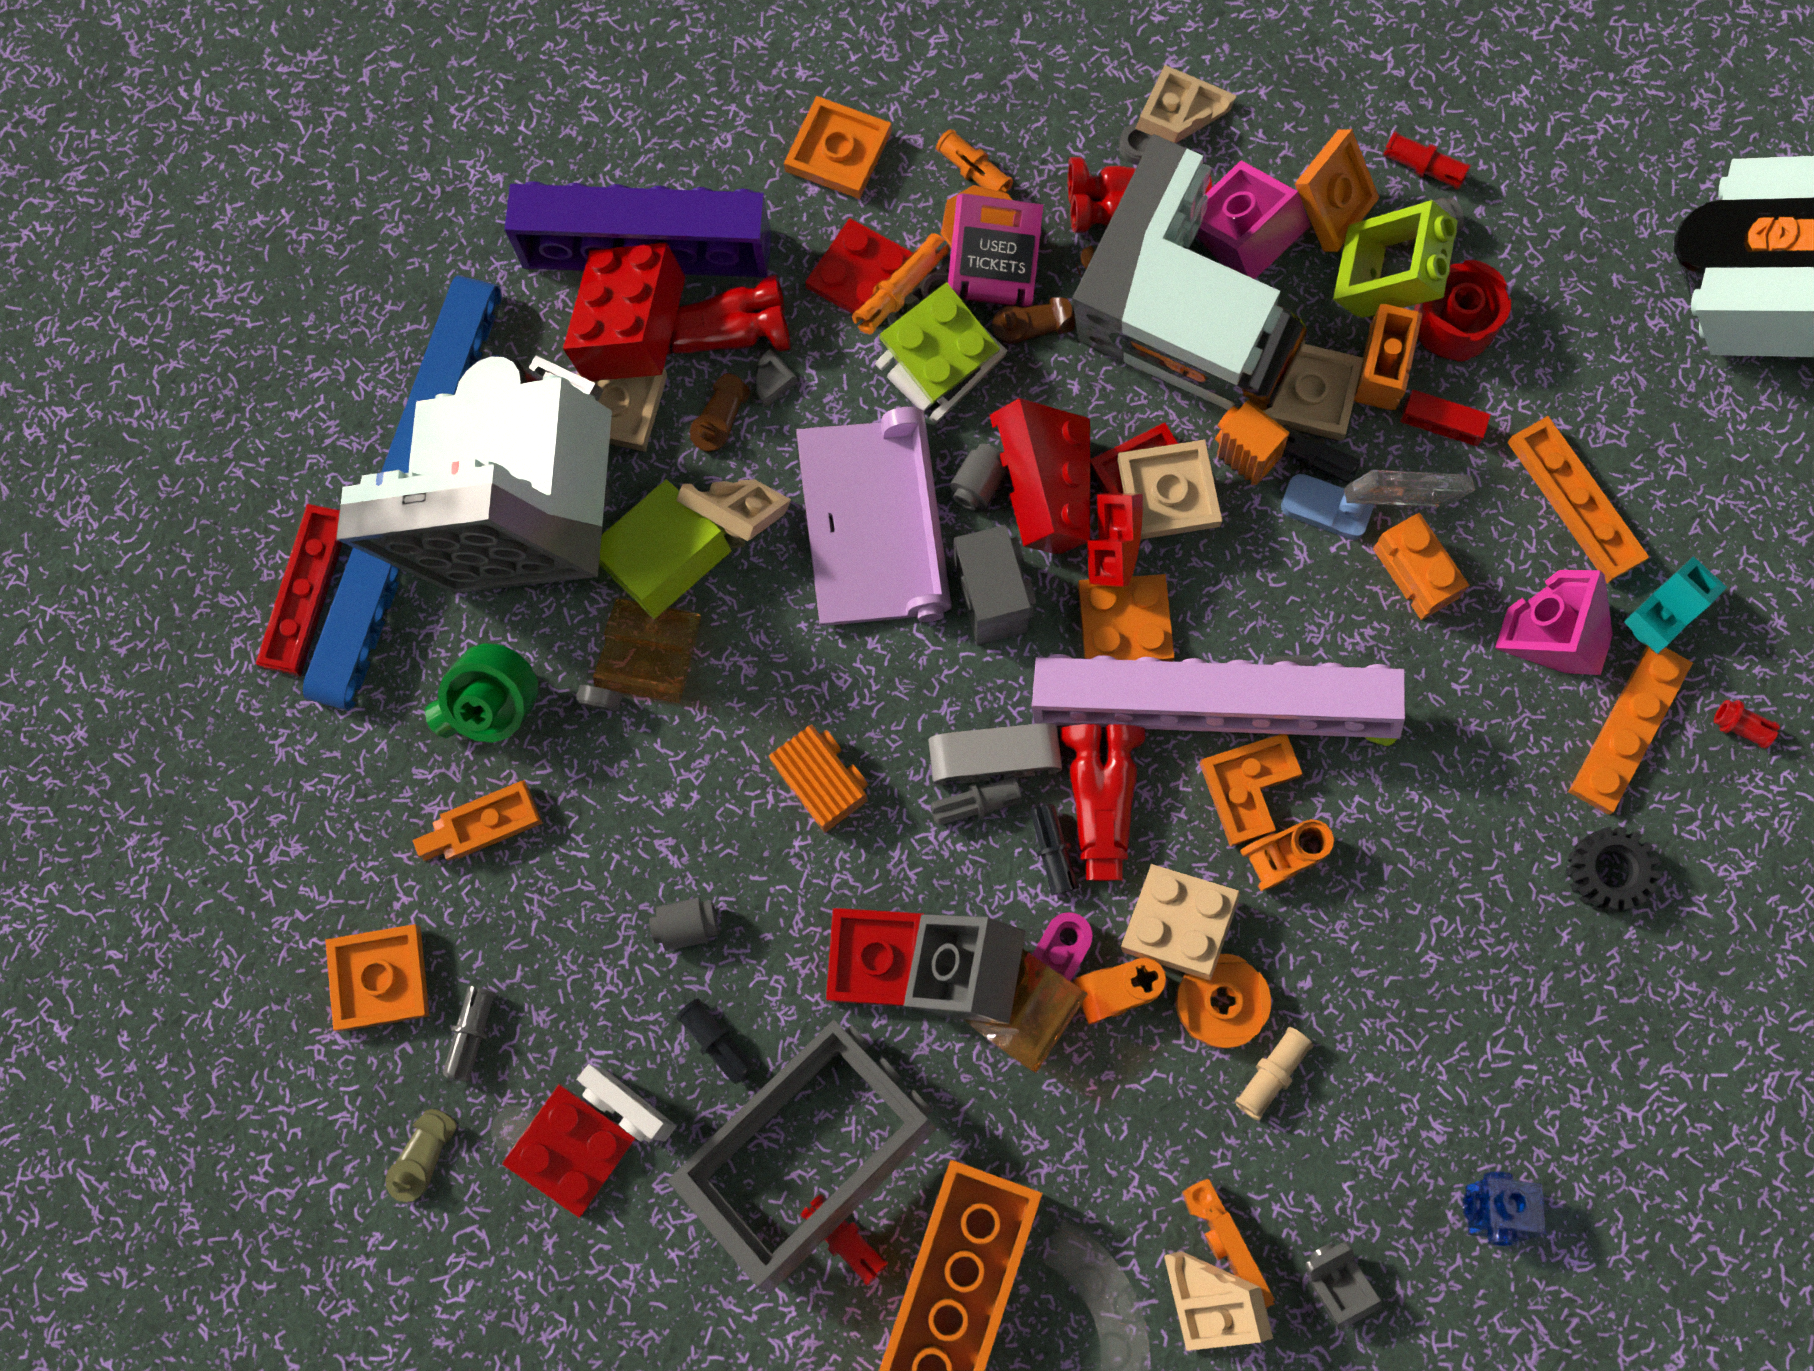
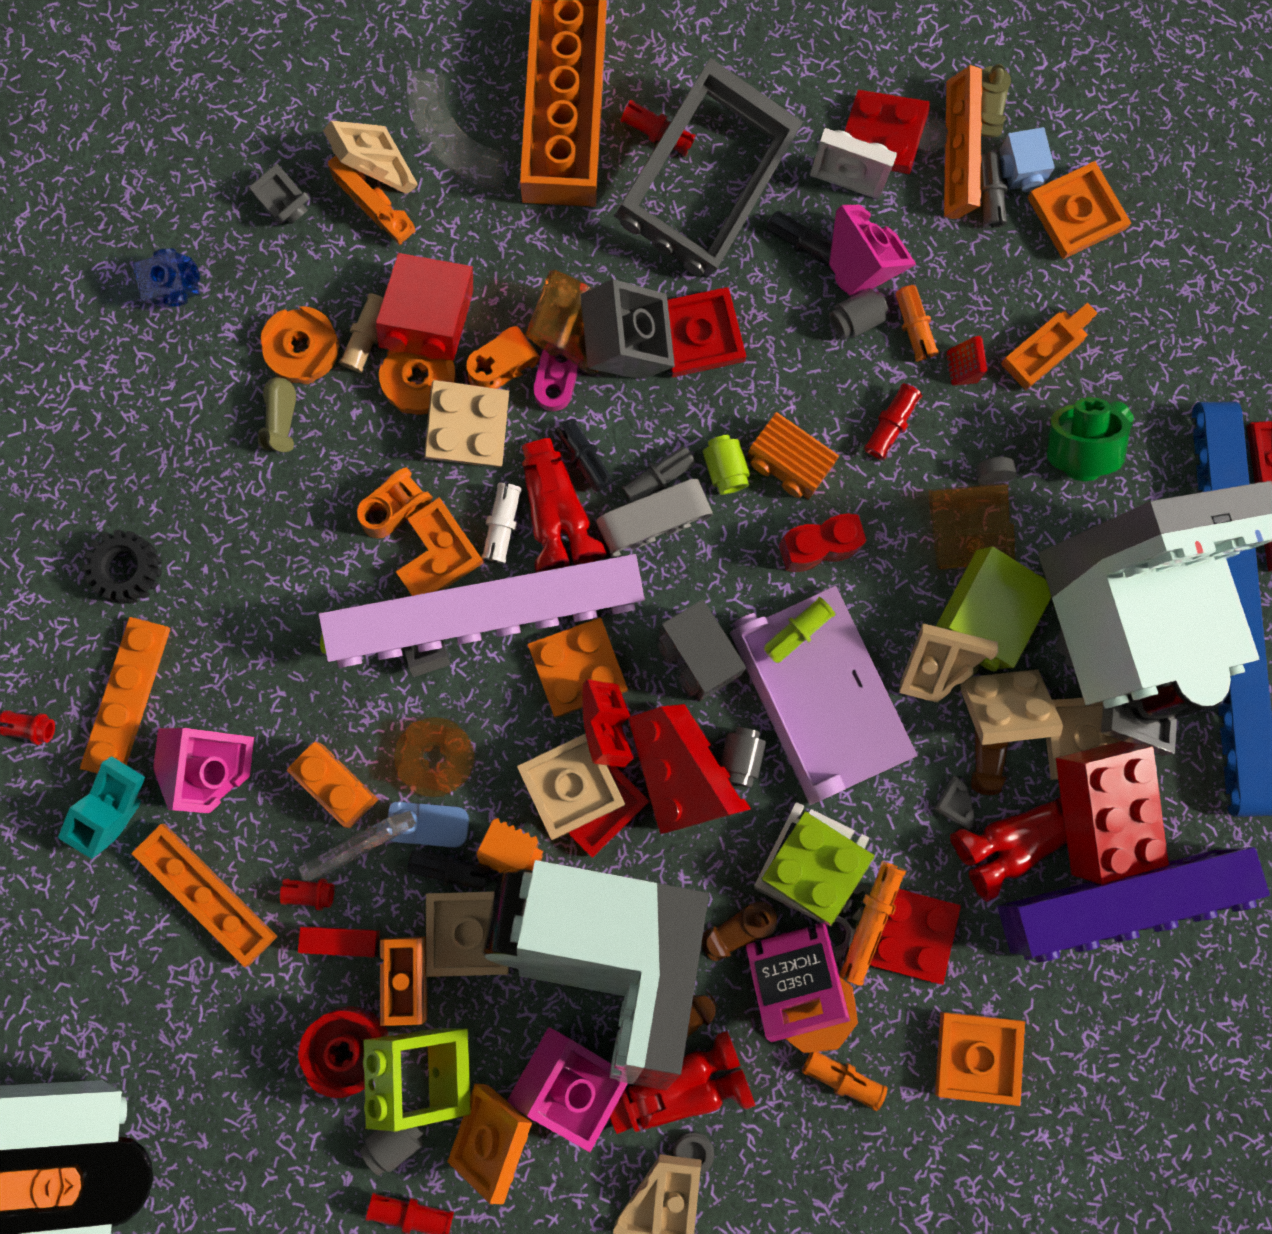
camera: 150 degrees right, 5 degrees up
(414, 1056) = (1026, 159): none -> light blue brick
(478, 1104) = (963, 143): none -> orange plate
(581, 831) = (967, 361): none -> red slope
(621, 896) = (916, 322): none -> orange axle
(647, 995) = (864, 252): none -> dark pink slope
(683, 443) = (1011, 707): none -> tan plate
(691, 787) = (893, 421): none -> red pin
(807, 671) = (830, 542): none -> red brick
(876, 585) = (799, 630): none -> lime axle
(896, 790) = (726, 464): none -> lime brick
(1168, 798) = (501, 523): none -> white pin
(1196, 1074) = (425, 307): none -> red brick
(1302, 546) = (421, 738): none -> clear orange plate
(1383, 1082) = (297, 324): none -> orange plate
(1393, 1016) = (280, 404): none -> olive piece
(1459, 464) = (307, 893): none -> red pin

